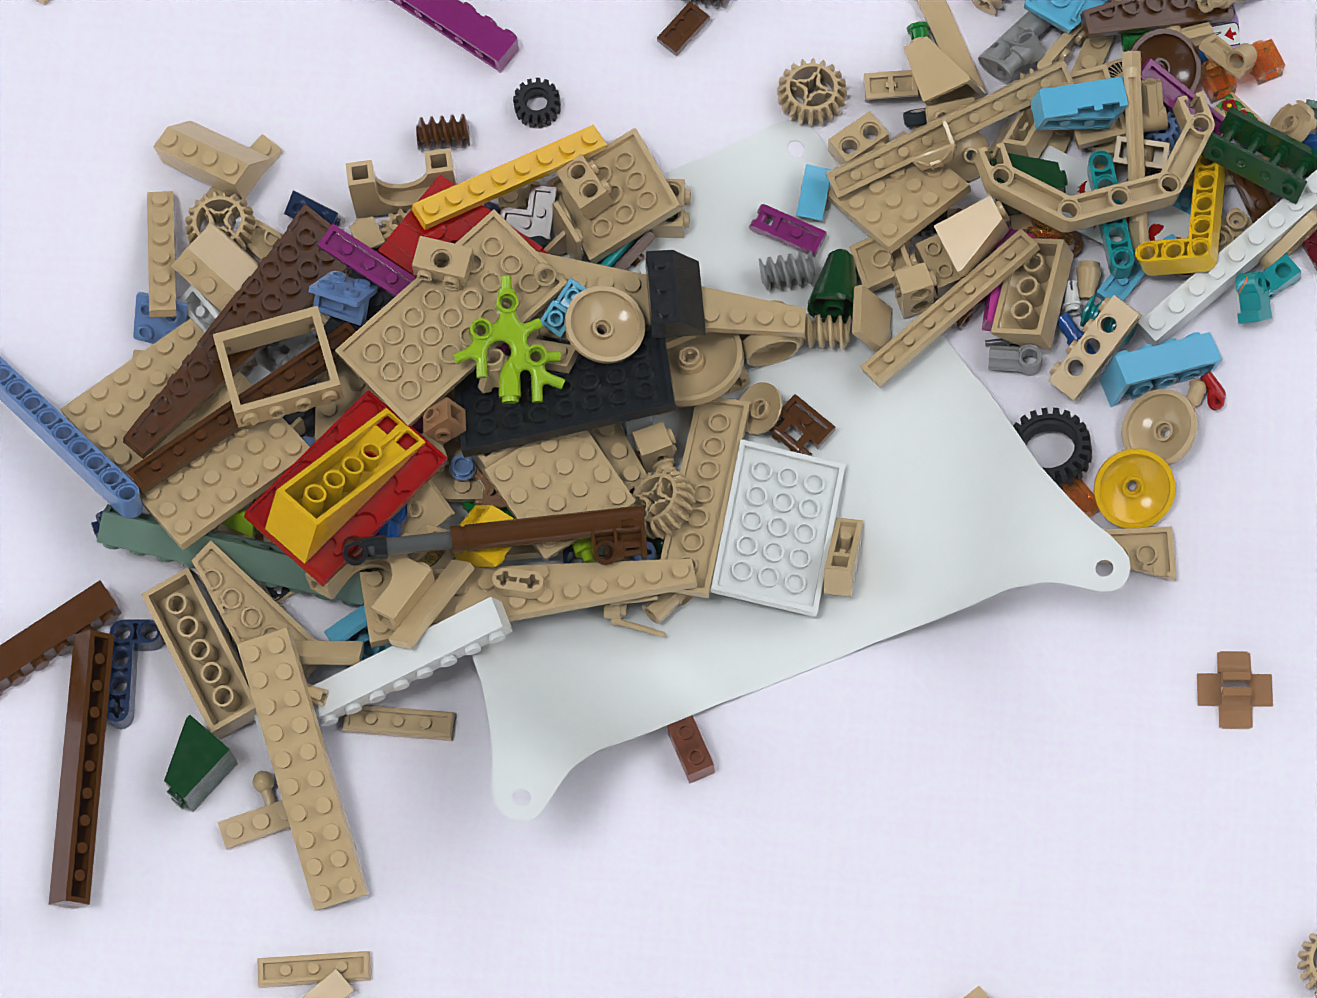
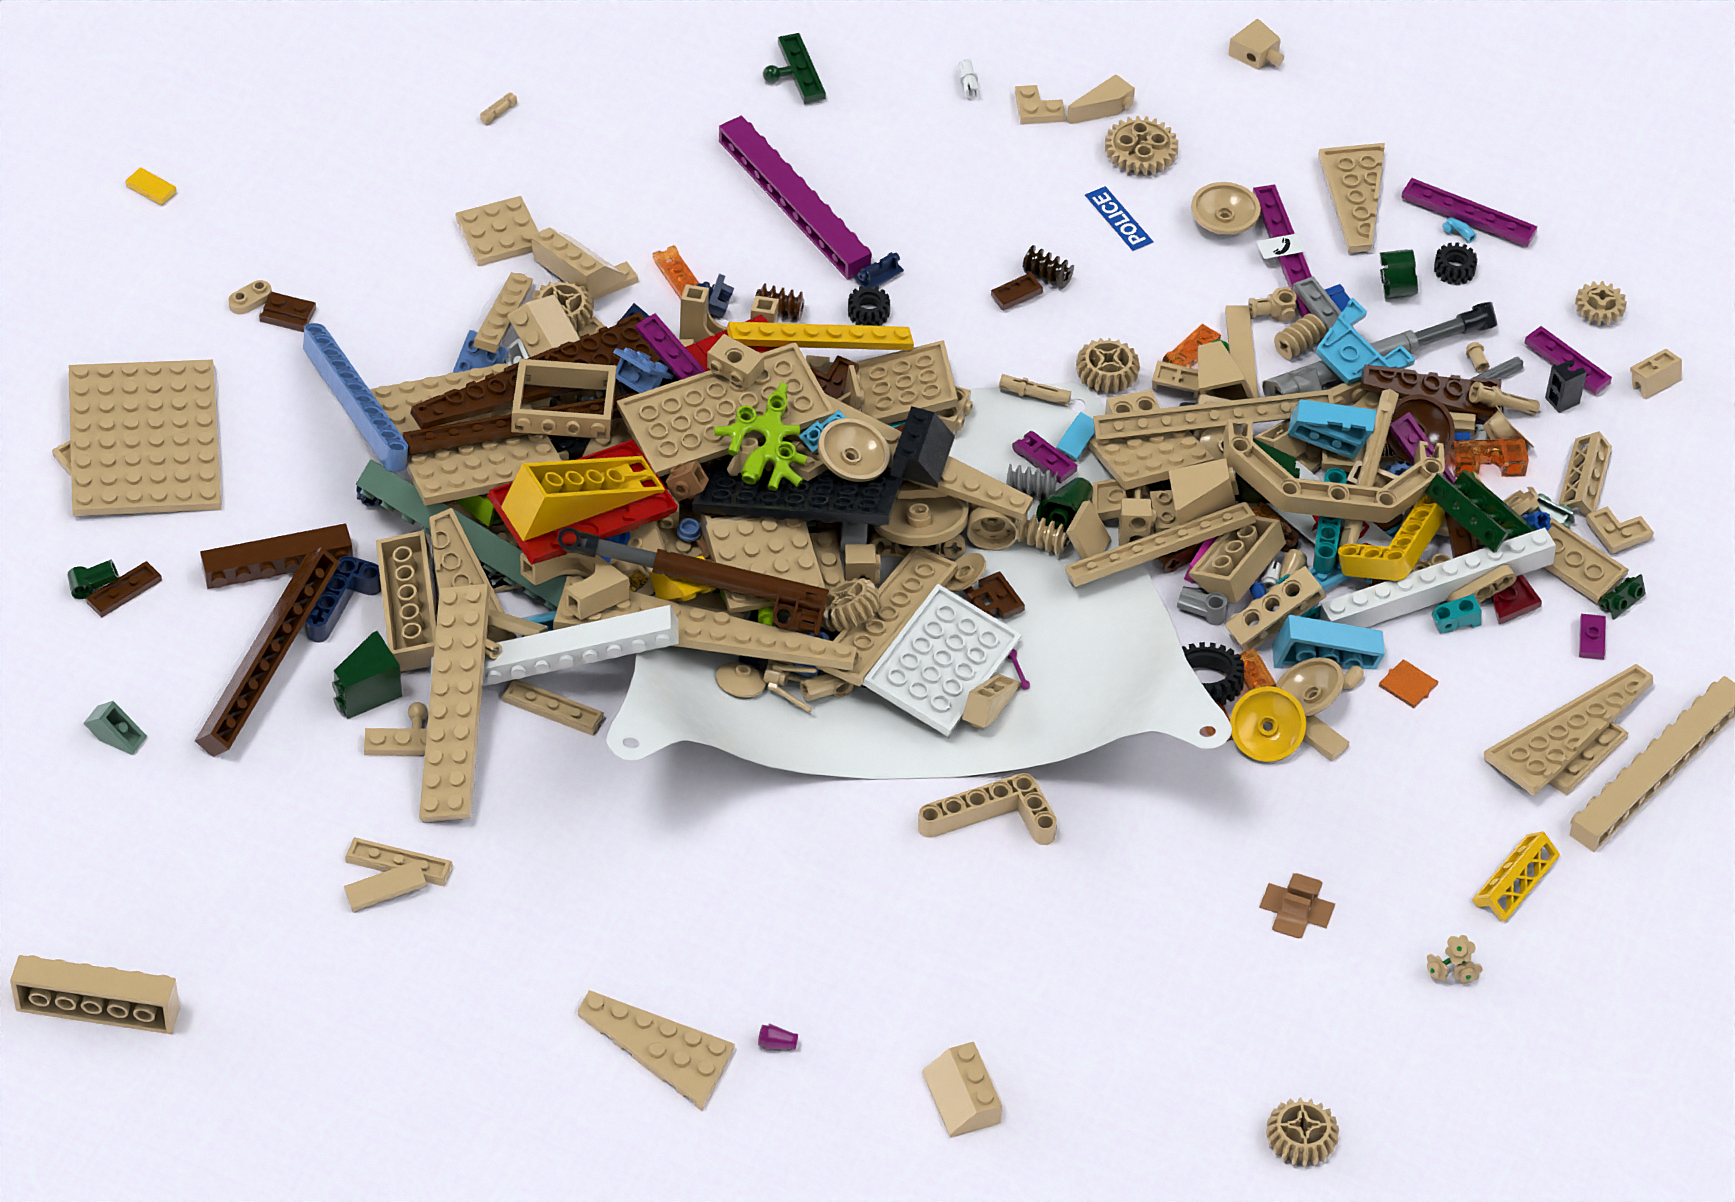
camera: 10 degrees right, 20 degrees down
(111, 139) = (497, 230): none -> tan plate
(321, 129) = (675, 271): none -> clear orange plate
(368, 146) = (721, 291): none -> dark blue hips
(431, 604) = (618, 605): tan tile -> none
(518, 583) = (699, 615): tan beam -> none
(531, 54) = (879, 272): none -> dark blue hinge
(549, 272) = (822, 394): tan hinge -> none
(580, 634) = (740, 679): none -> tan dish
(587, 185) = (882, 367): tan brick -> none
(690, 749) = (796, 798): copper brick -> none
(747, 148) = (1034, 389): none -> tan pin
(868, 521) = (1024, 683): none -> magenta hinge
(889, 36) = (1188, 349): none -> clear orange plate
(889, 685) = (988, 801): none -> tan beam
(939, 156) = (1195, 426): tan piece -> none
(1101, 428) = (1255, 671): none -> clear orange plate
(1148, 550) = (1252, 773): tan wing -> none
(1153, 111) = (1395, 454): tan piece -> none
(1194, 479) = (1324, 738): none -> tan tile
(1215, 391) = (1371, 682): red arm -> none
(1227, 56) = (1480, 436): tan plate -> none
(1241, 30) = (1499, 428): none -> tan piece
(1252, 297) = (1431, 618): teal leg -> none
(1252, 378) = (1408, 683): none -> clear orange piece

